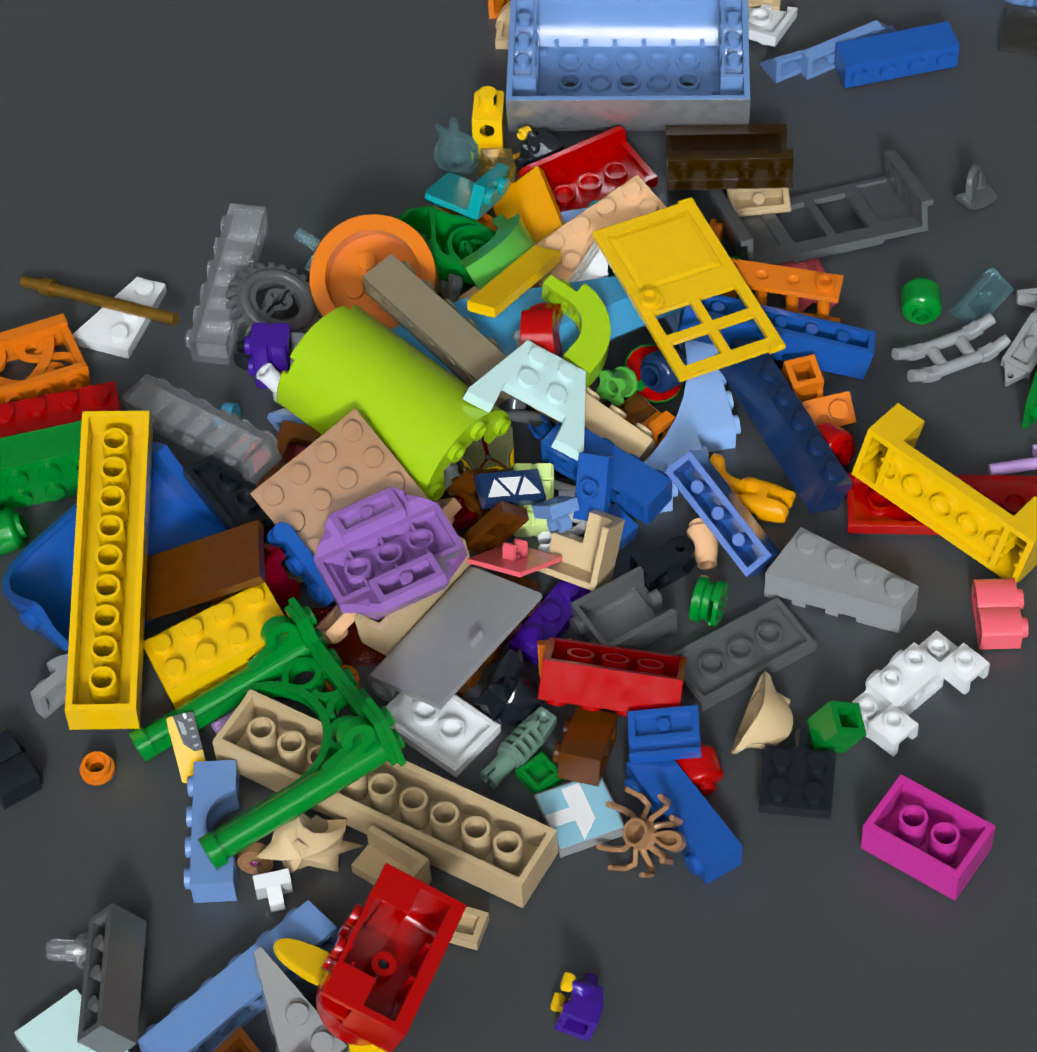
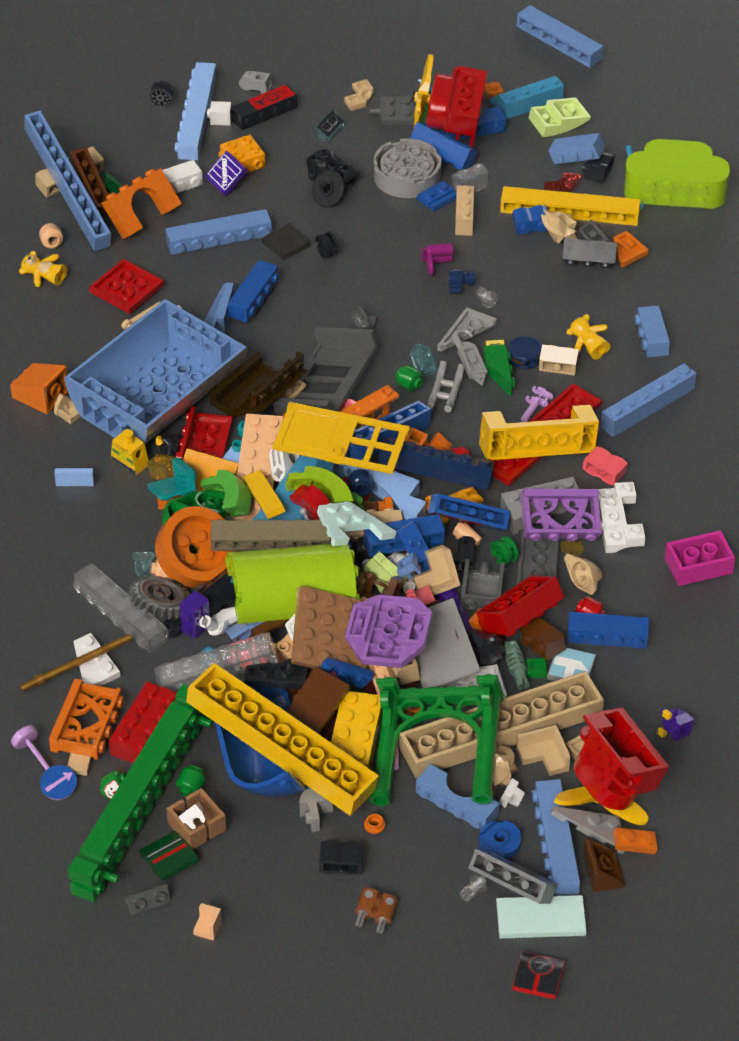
camera: 55 degrees left, 5 degrees down
(185, 743) = (400, 780): sticker -> none
(189, 946) = (507, 830): none -> blue plate
(401, 104) = (74, 477): none -> light blue tile
(455, 150) = (134, 474): clear light blue piece -> none
(513, 487) = (382, 572): dark blue tile -> none
(642, 834) = (611, 646): medium nougat animal -> none
(664, 734) = (570, 604): blue plate -> none
(797, 779) = (627, 582): black plate -> none
(806, 677) = (572, 547): none -> clear yellow piece
(821, 570) = (578, 496): none -> medium lavender fence
(837, 726) = (615, 551): green brick -> none

